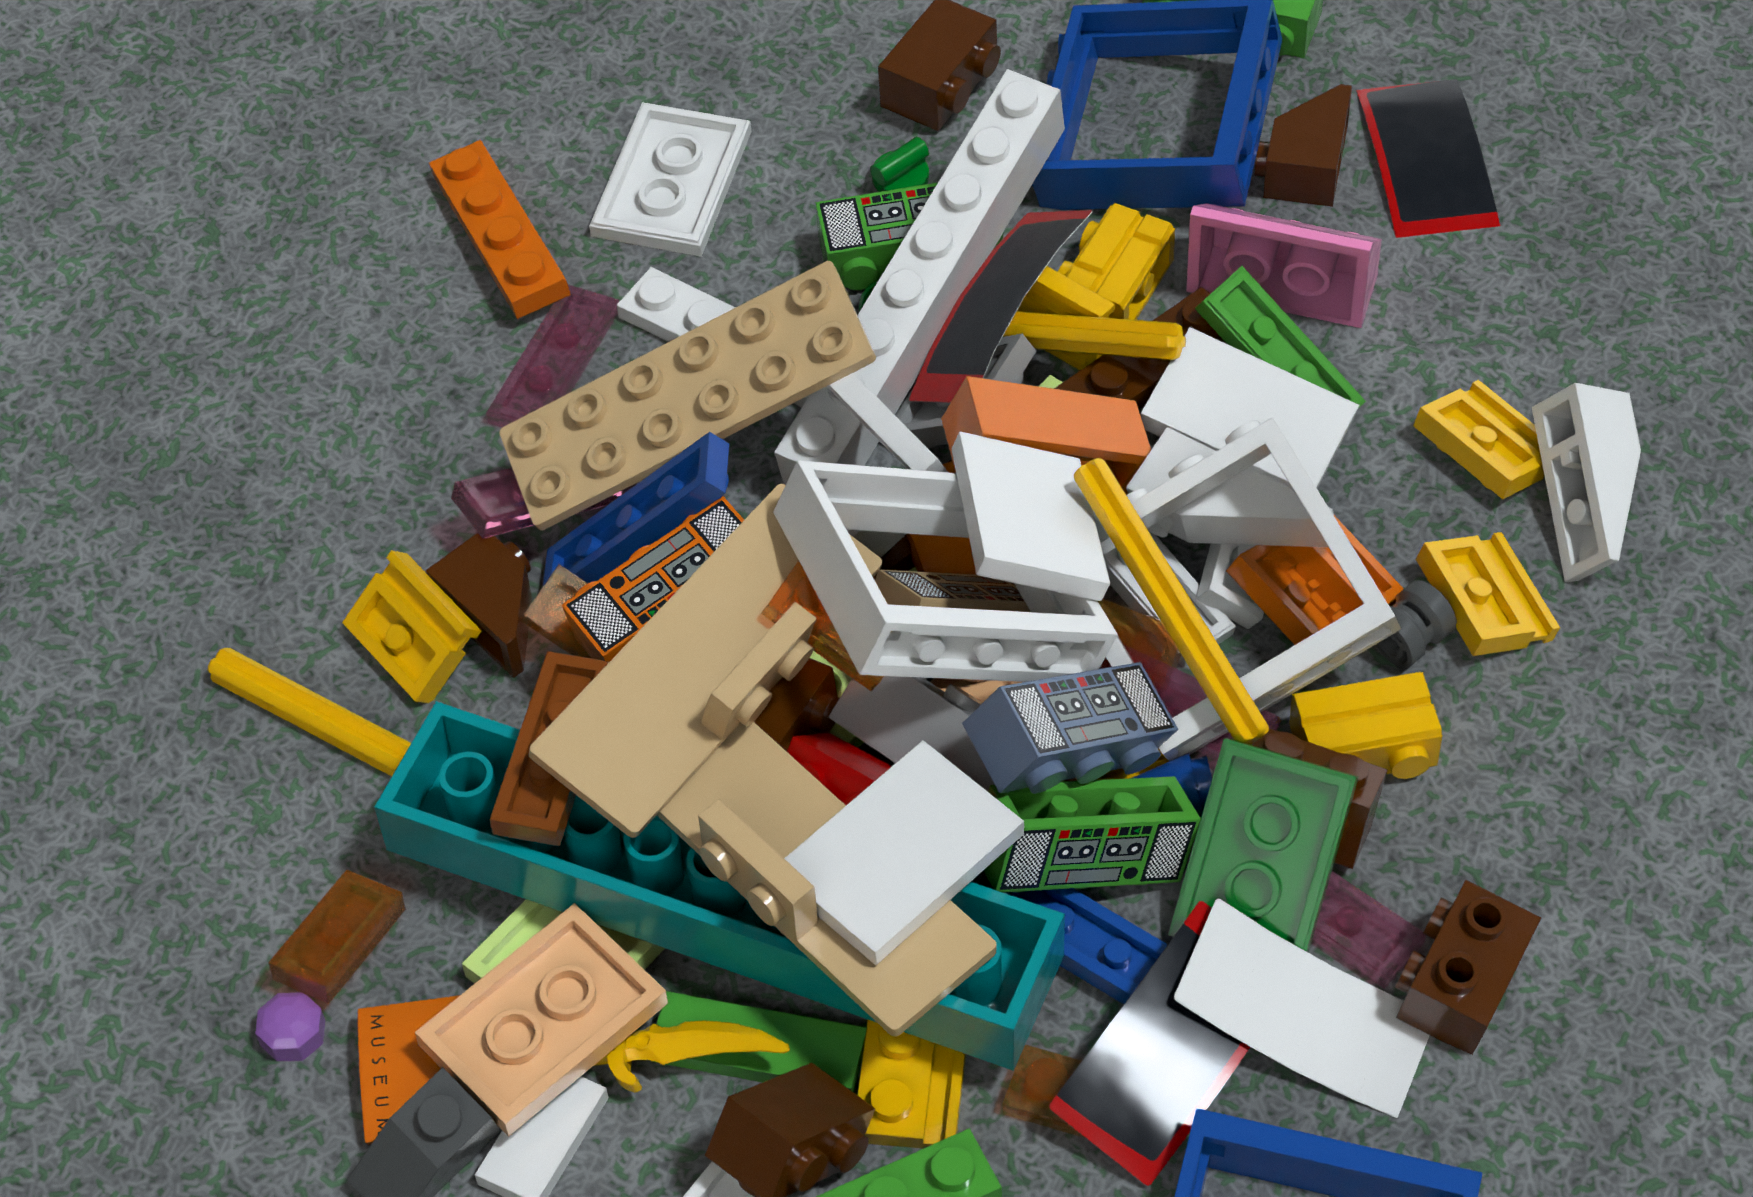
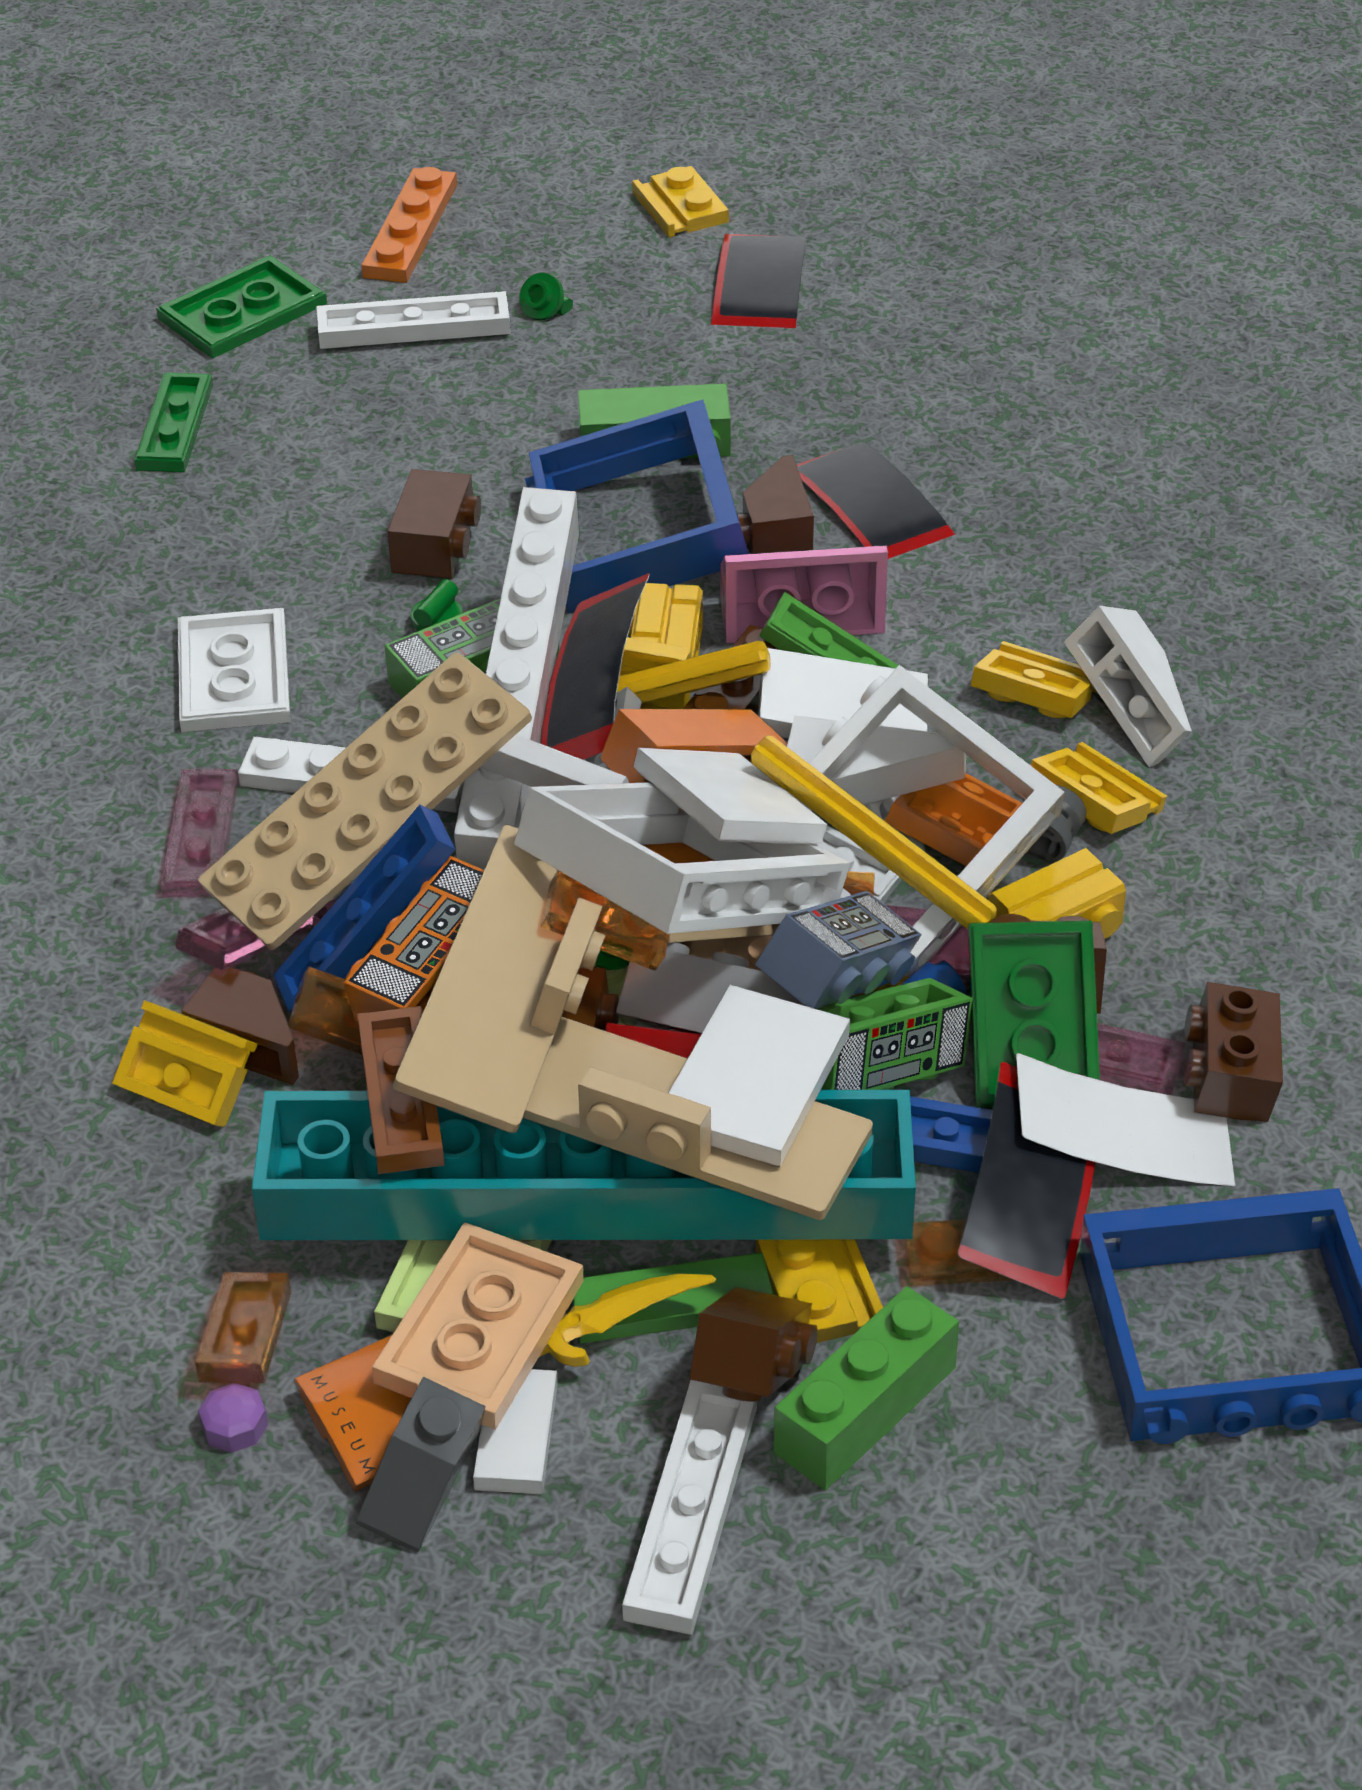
camera: 25 degrees left, 10 degrees down
(308, 710) = (129, 1163): yellow axle -> none
(499, 229) = (98, 742): orange plate -> none

